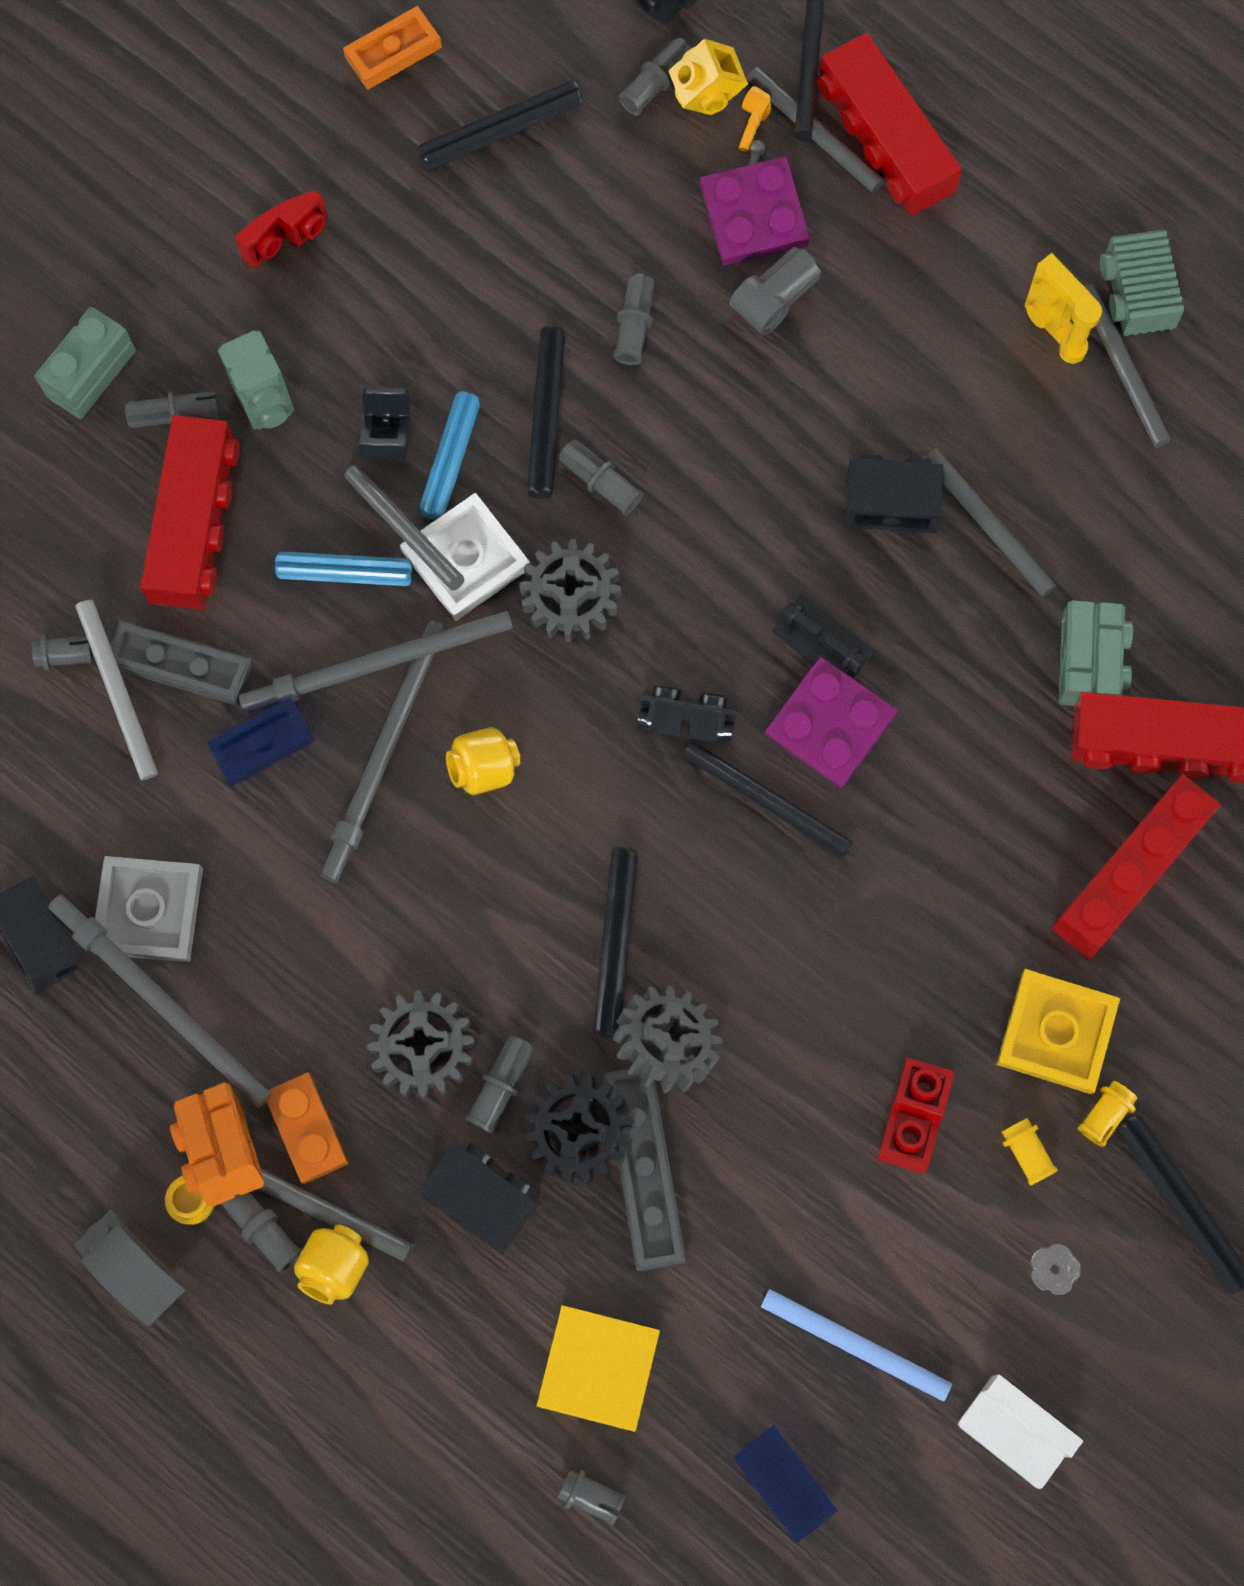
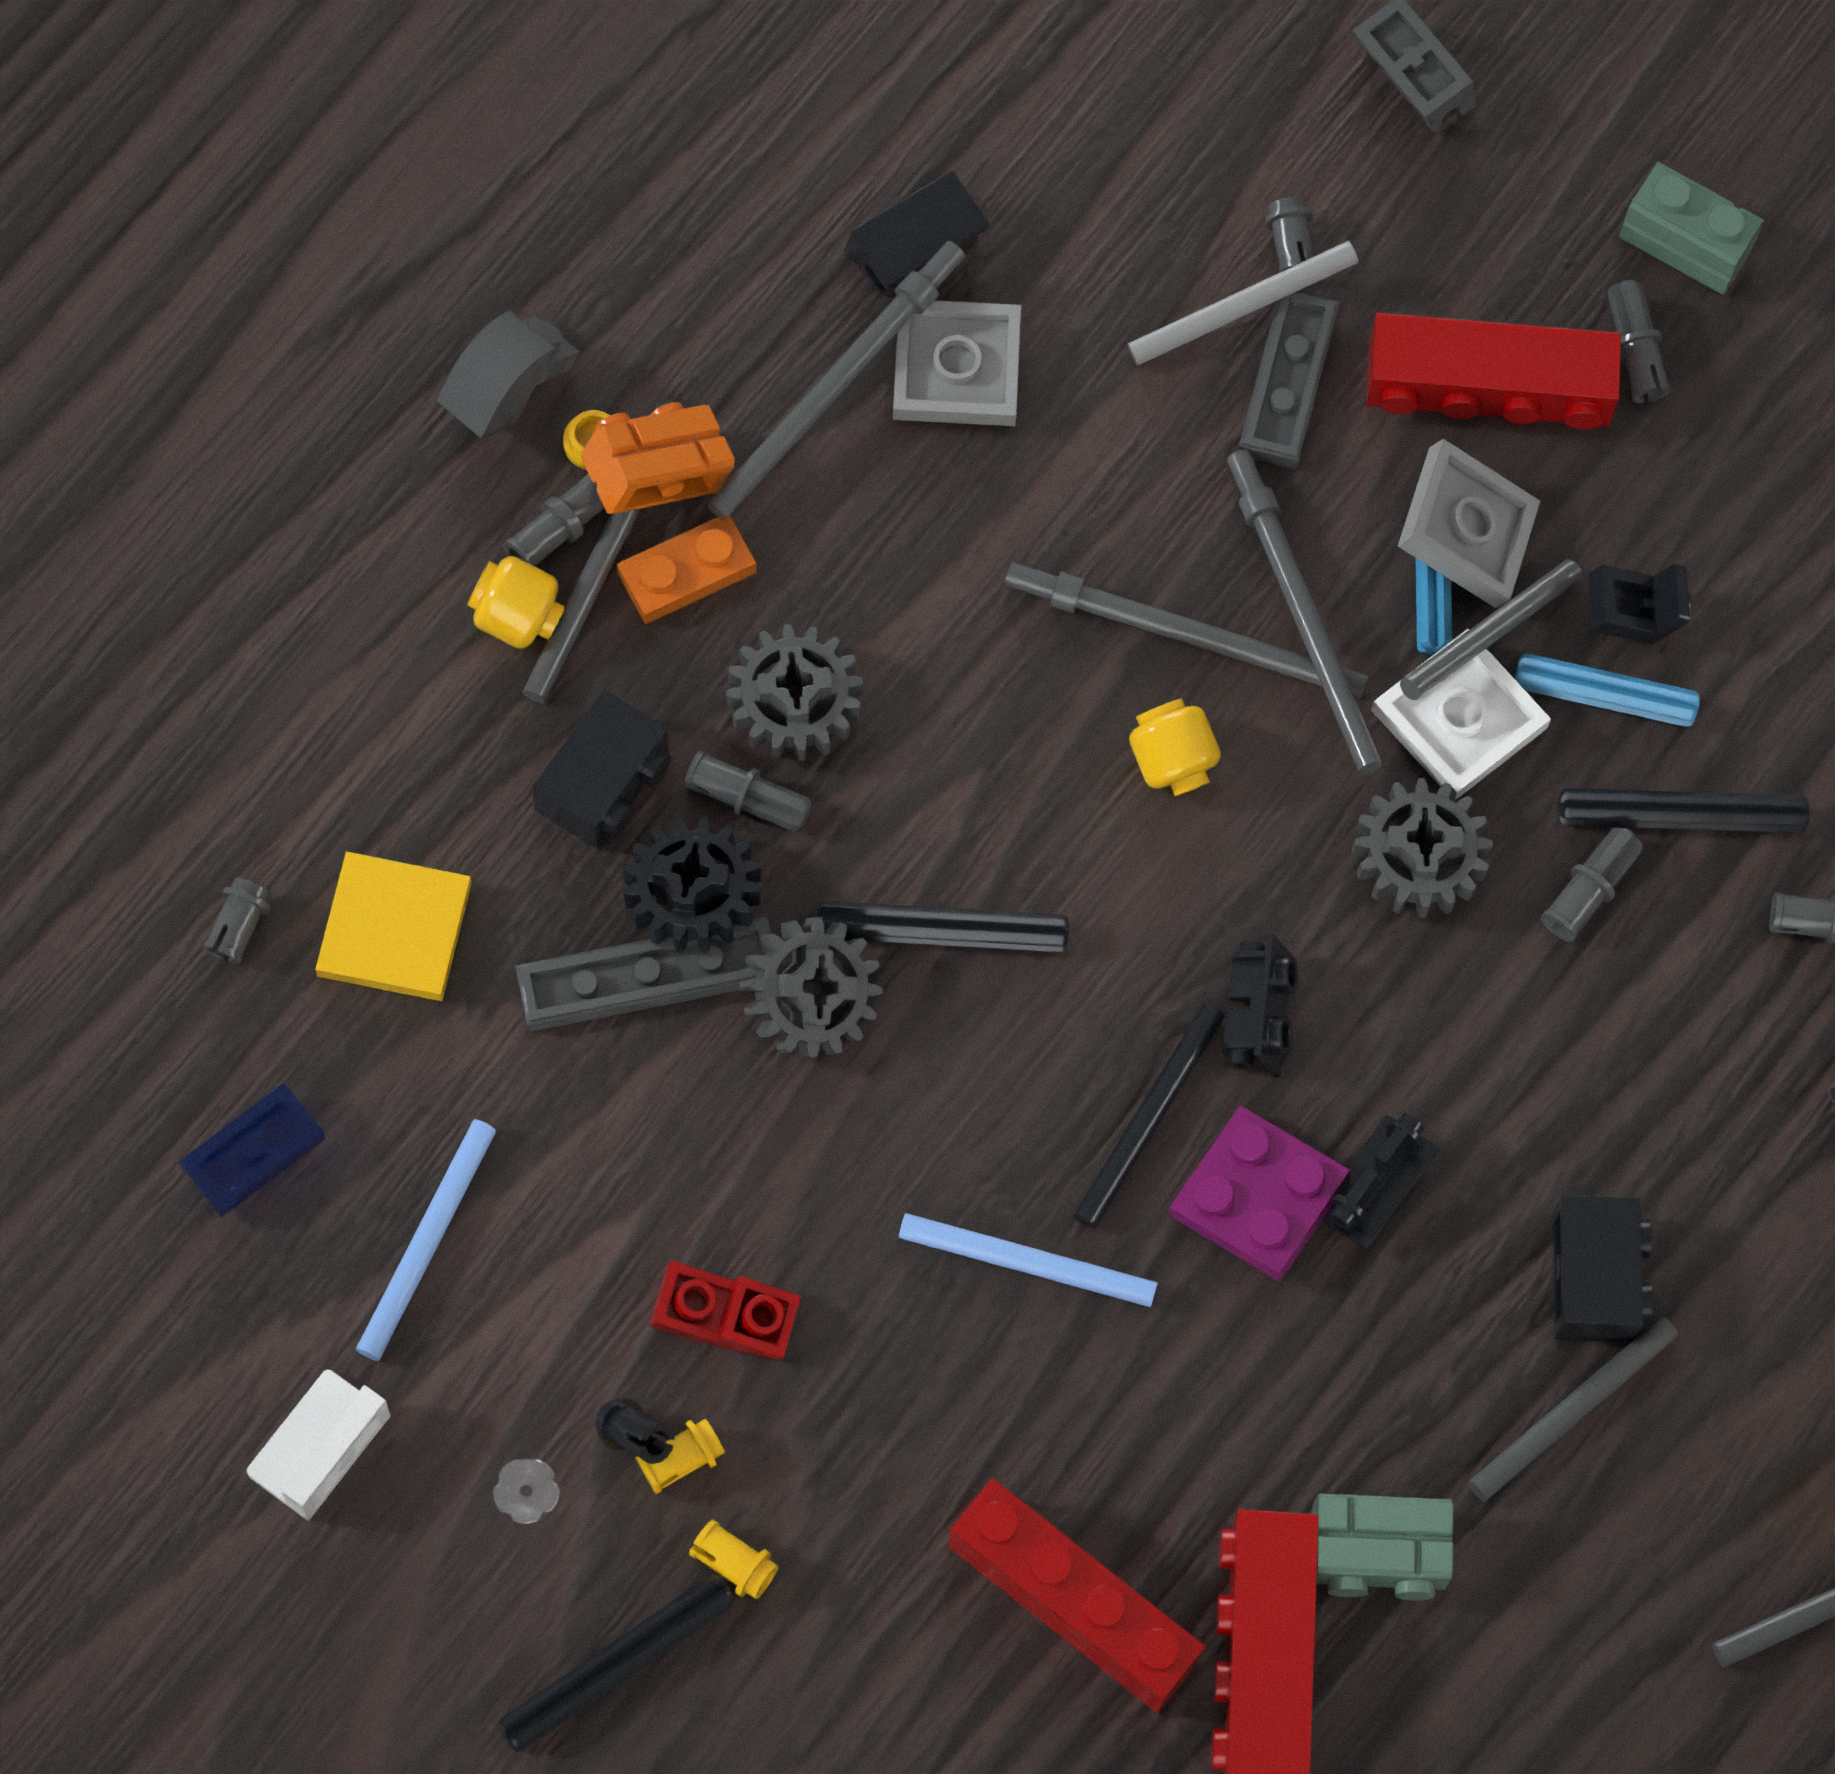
camera: 80 degrees right, 5 degrees down
(256, 380) = (1679, 431): sand green brick -> none
(260, 741) = (1185, 479): clear blue plate -> none
(317, 536) = (1469, 523): none -> light grey plate
(877, 892) = (1027, 1260): none -> light blue bar
(1007, 1193) = (625, 1426): none -> black pin
(1058, 1031) = (843, 1493): yellow plate -> none

